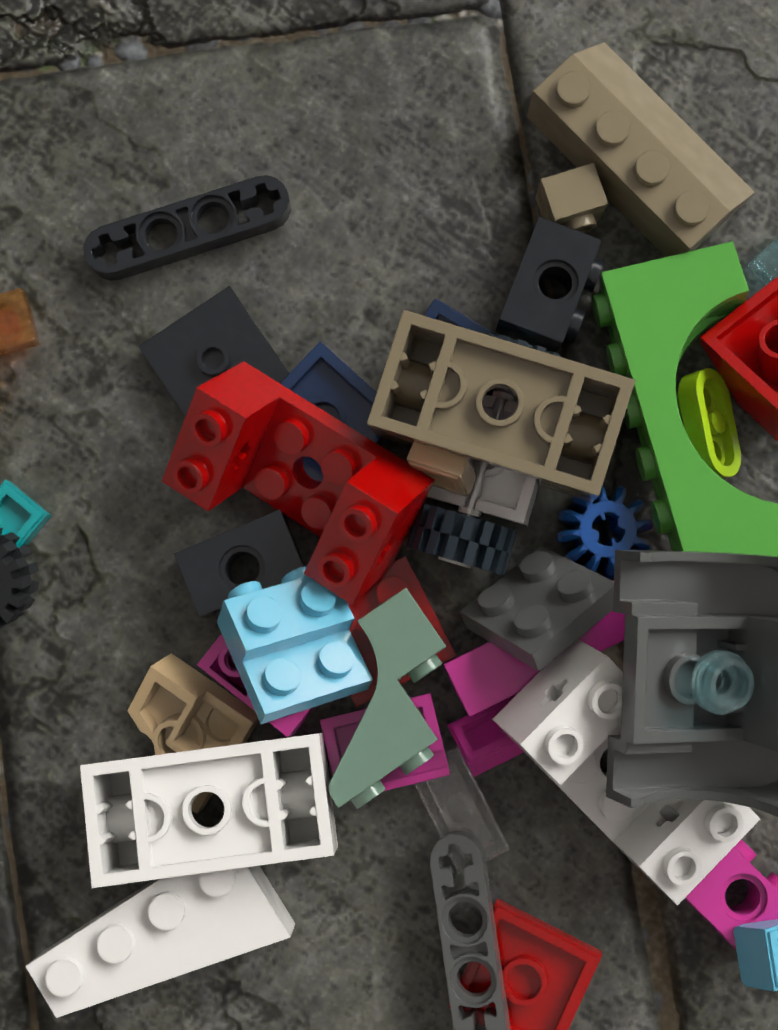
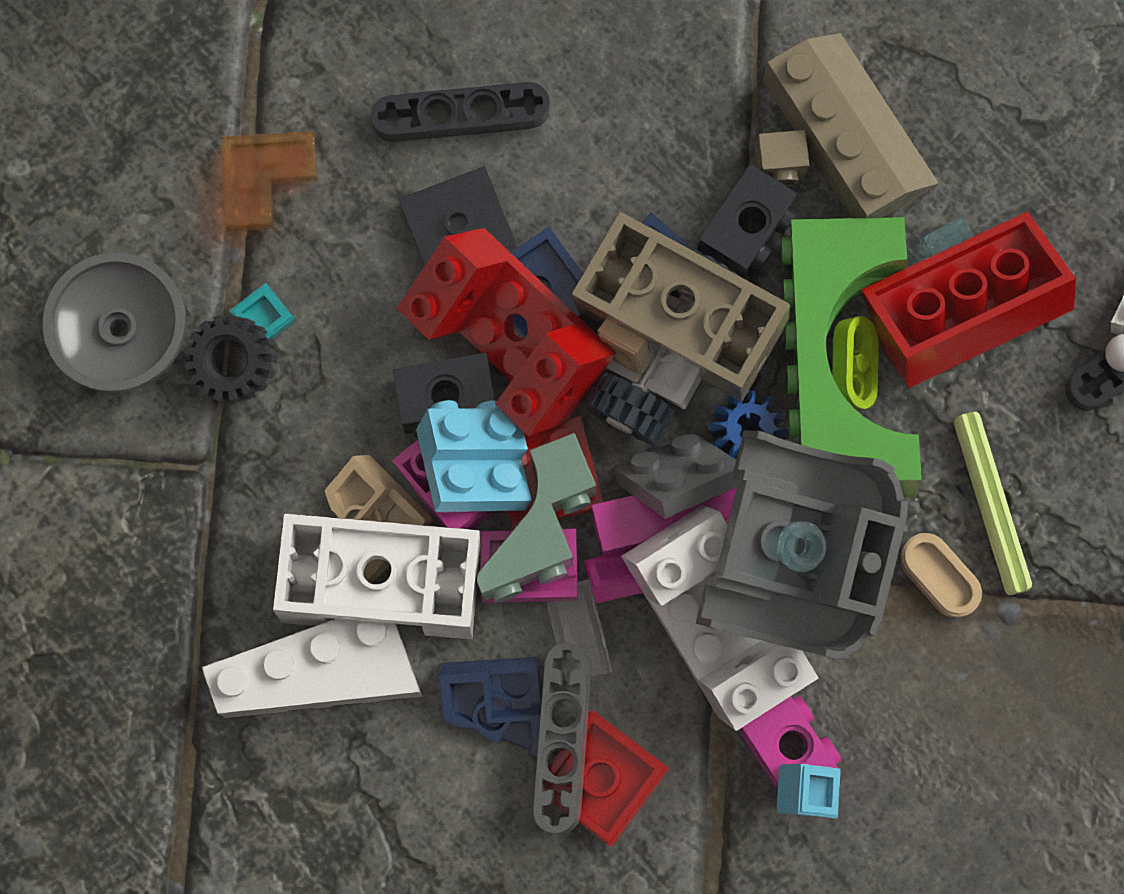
camera: 10 degrees right, 5 degrees down
(378, 910) = (495, 698): none -> dark blue slope

